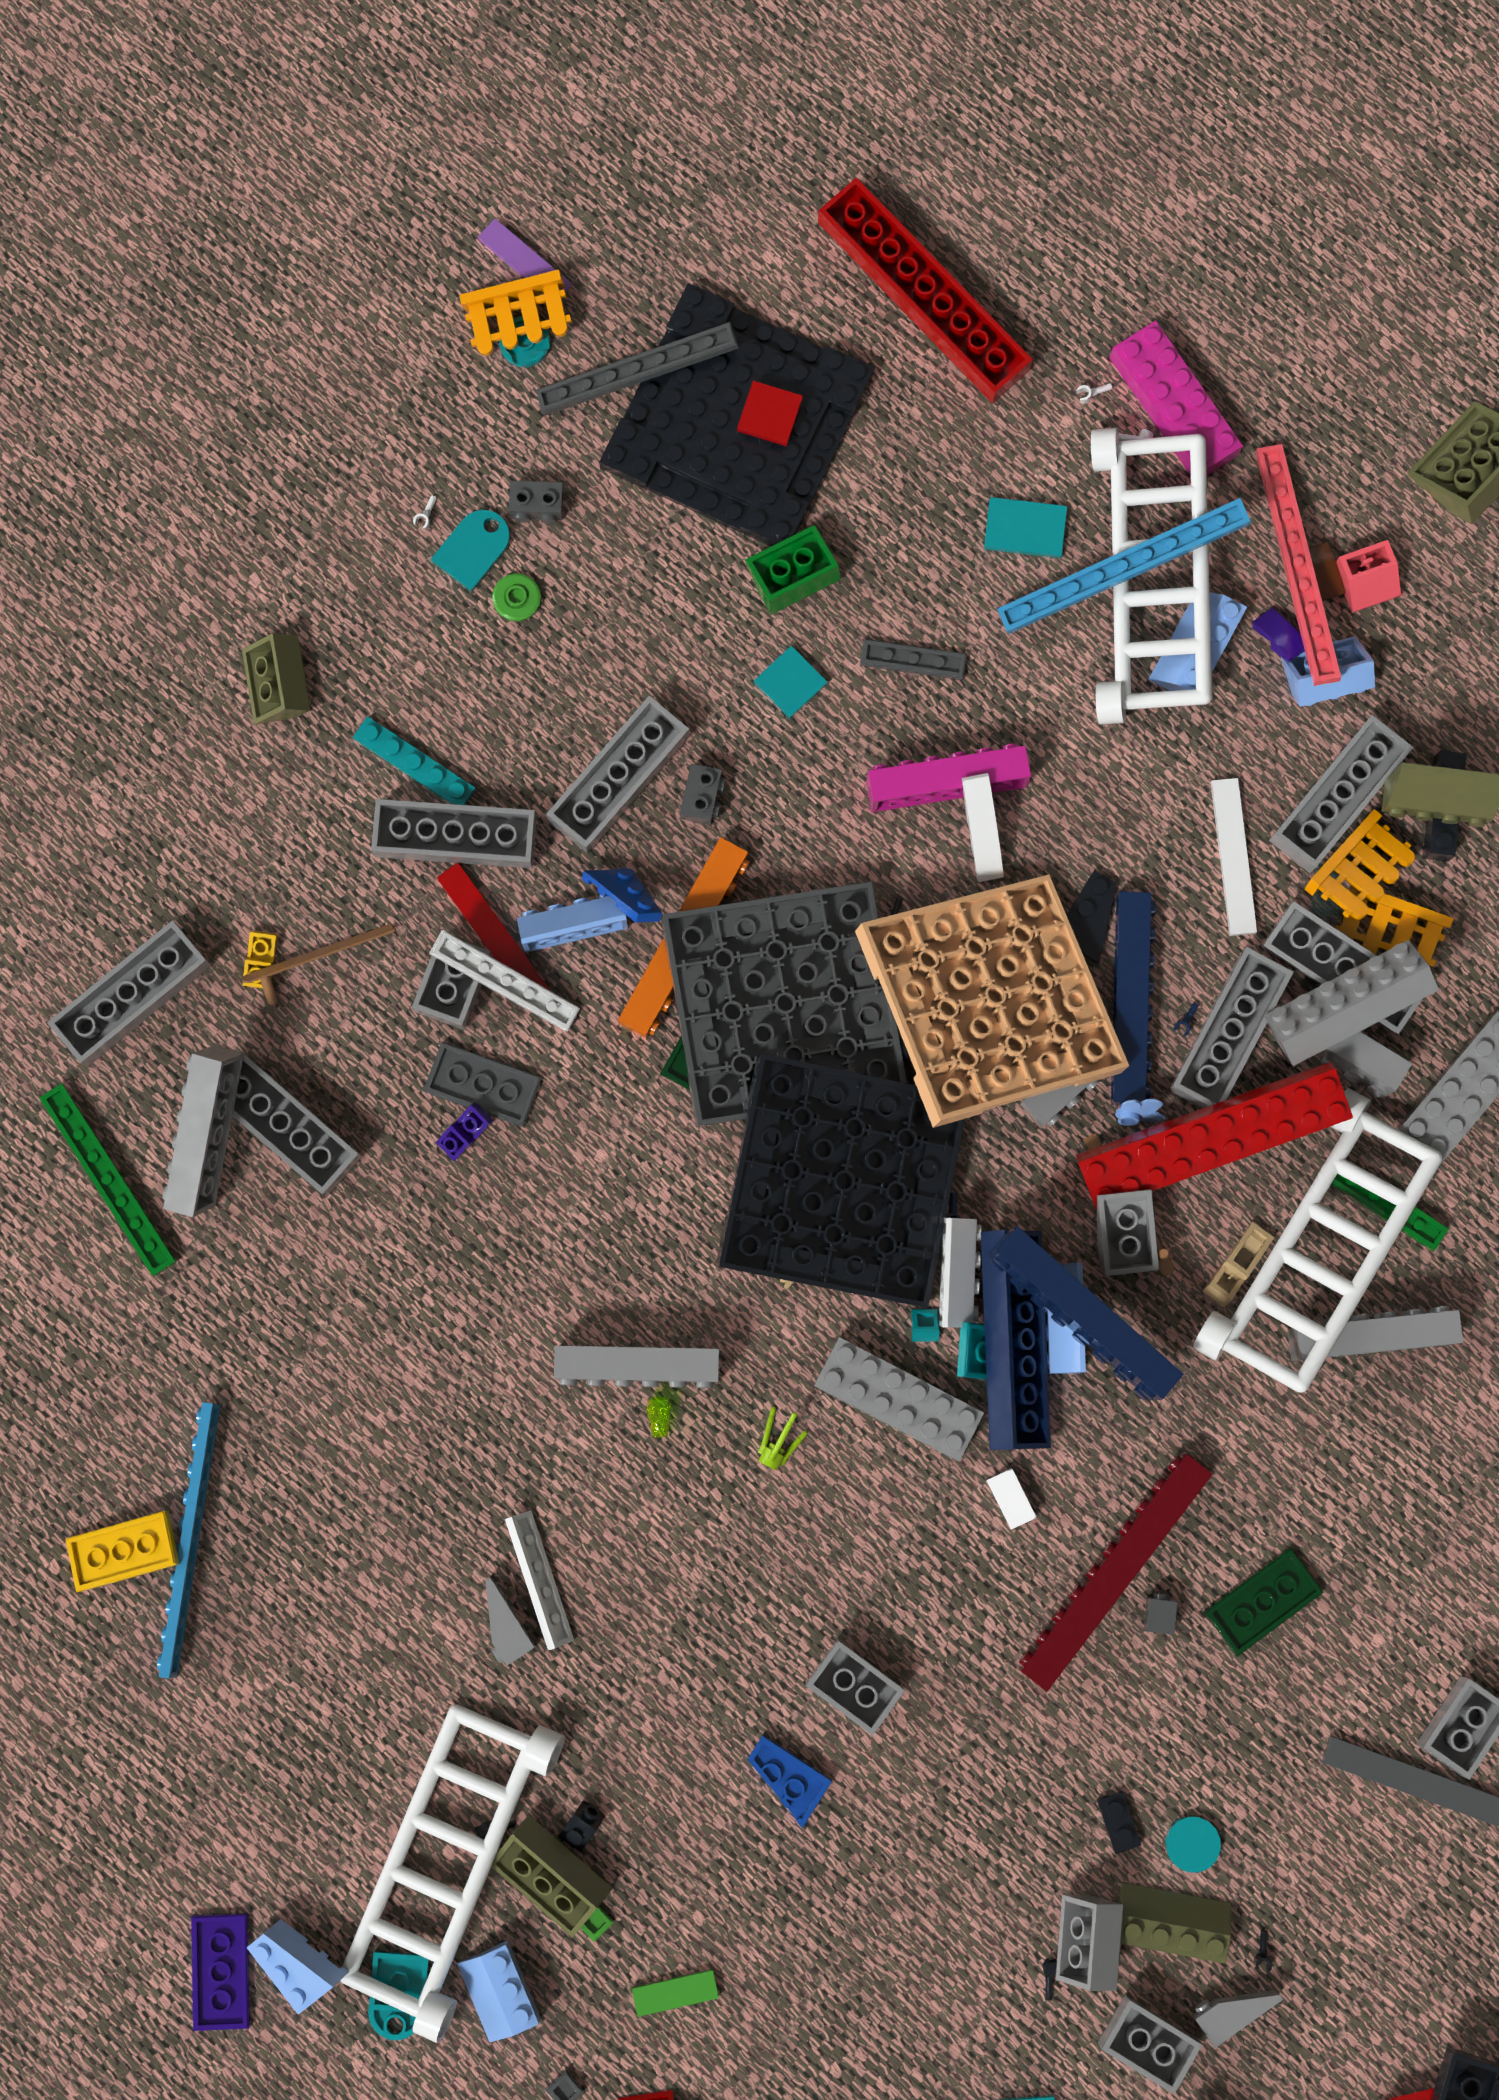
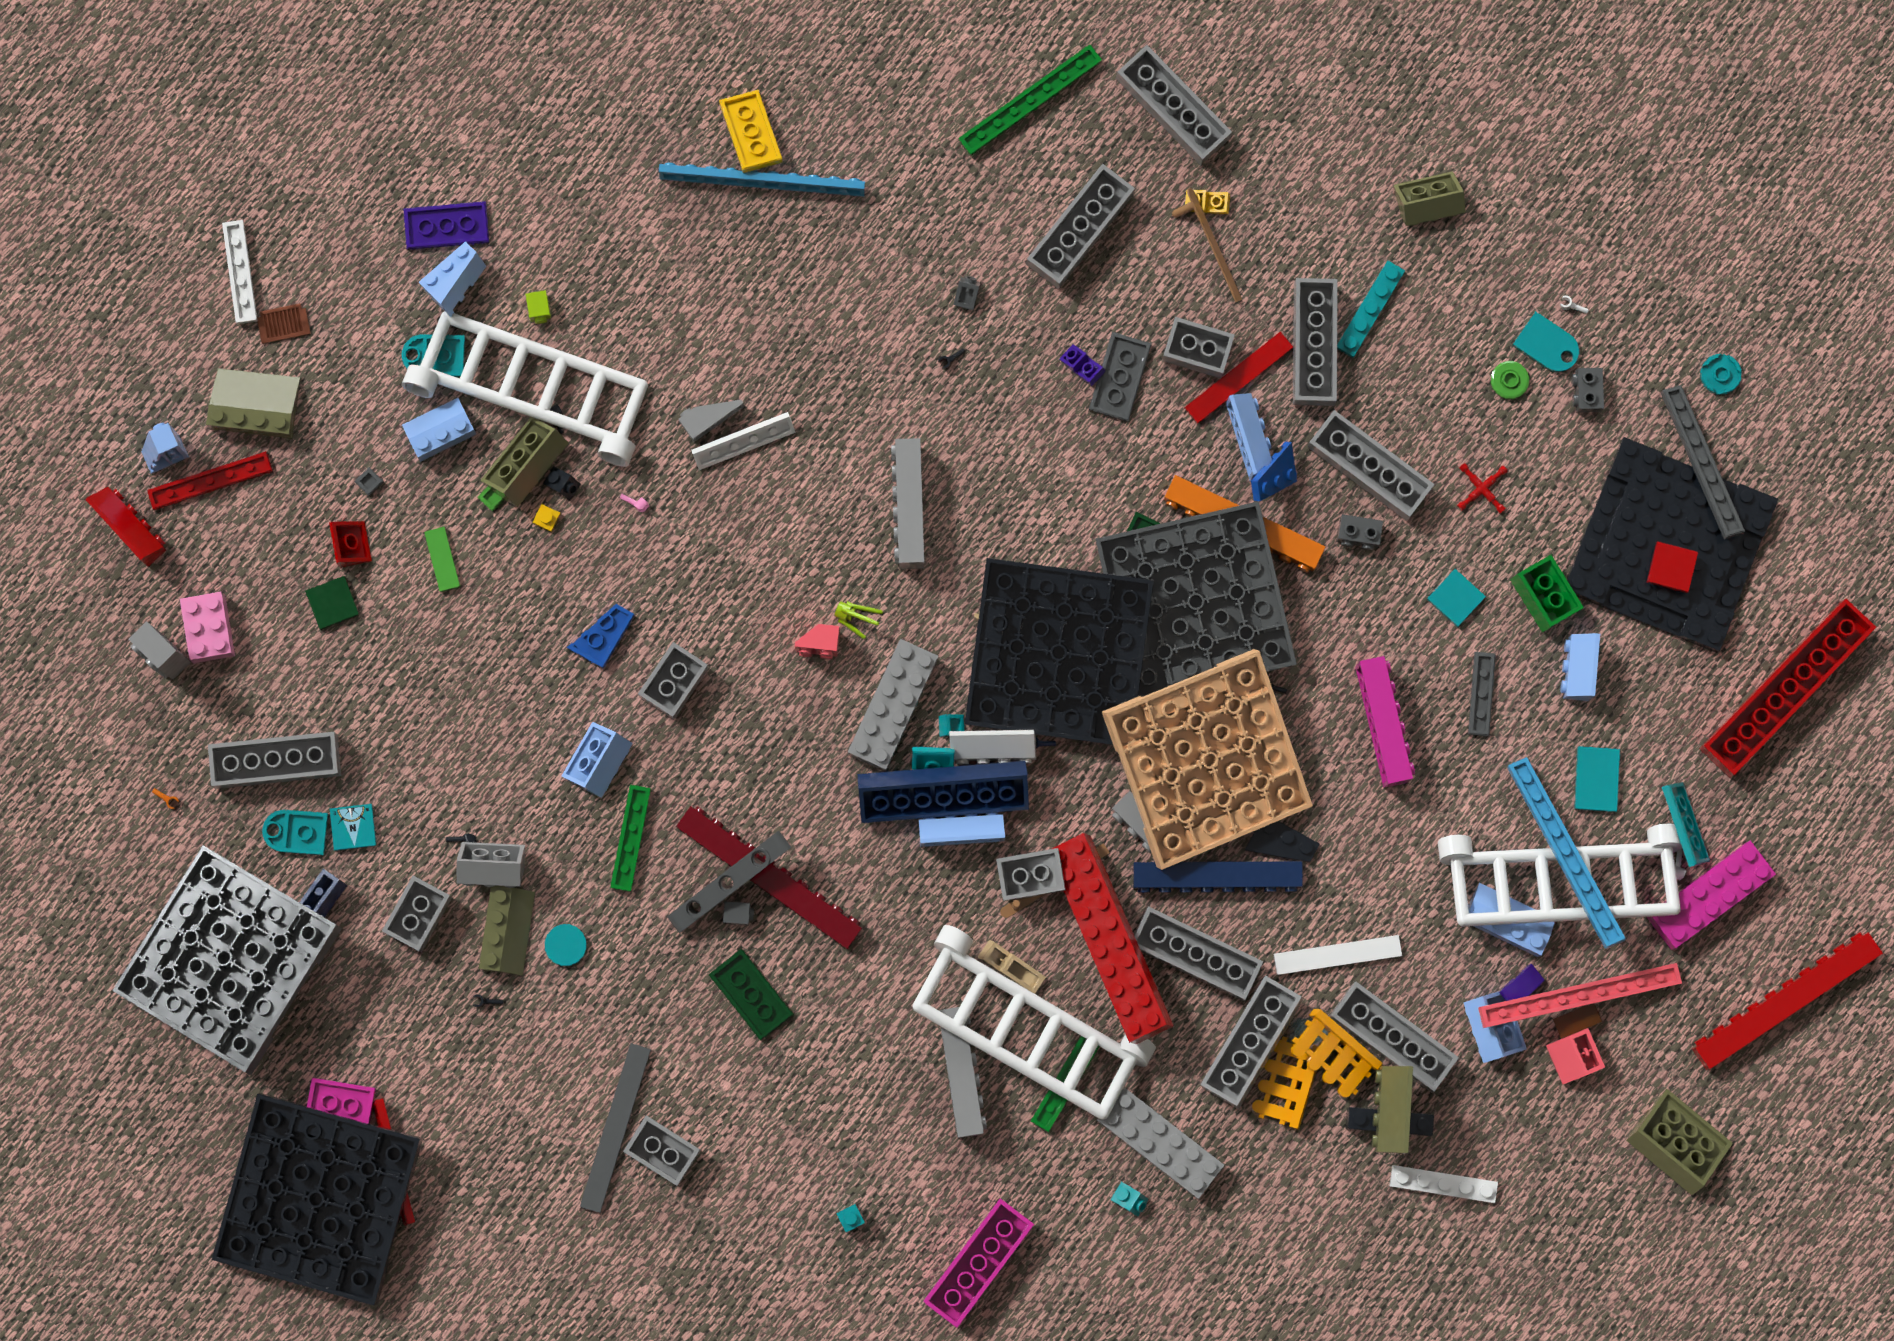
camera: 85 degrees right, 0 degrees up
(202, 1130) = (1070, 165): light grey brick -> none
(341, 1849) = (538, 307): none -> lime brick
(359, 1275) = (967, 292): none -> dark grey bracket
(444, 1300) = (951, 358): none -> black hand
(500, 298) = (1750, 373): light orange fence -> none
(504, 980) = (1200, 386): white tile -> none
(515, 252) = (1788, 370): medium lavender tile -> none
(616, 1719) = (641, 505): none -> bright pink hand
(627, 1848) = (546, 518): none -> yellow plate
(652, 640) = (1482, 488): none -> red piece
(659, 1415) = (871, 524): clear neon green cone -> none
(811, 1490) = (819, 640): none -> coral slope
(887, 534) = (1580, 666): none -> light blue slope
(953, 1793) = (597, 759): none -> light blue slope
(982, 827) = (1346, 750): white slope -> none
(1011, 1498) = (821, 796): white slope -> none
(1057, 1752) = (630, 838): none -> green plate
(1084, 1314) = (964, 835): dark blue brick -> none
(1089, 423) = (1686, 824): none -> teal tile
(1093, 391) = (1714, 828): white hand -> none
(1113, 1610) = (739, 873): none -> dark grey beam
(1118, 1822) = (579, 887): black plate -> none
(1134, 1111) = (1126, 878): light blue plate -> none
(1187, 1019) = (1203, 921): dark blue hand -> none
(1228, 2015) = (439, 973): light grey slope -> none
(1306, 323) = (1787, 1000): none -> red brick
(1351, 1002) = (1221, 1040): light grey brick -> none
(1368, 1063) = (1178, 1058): light grey brick -> none

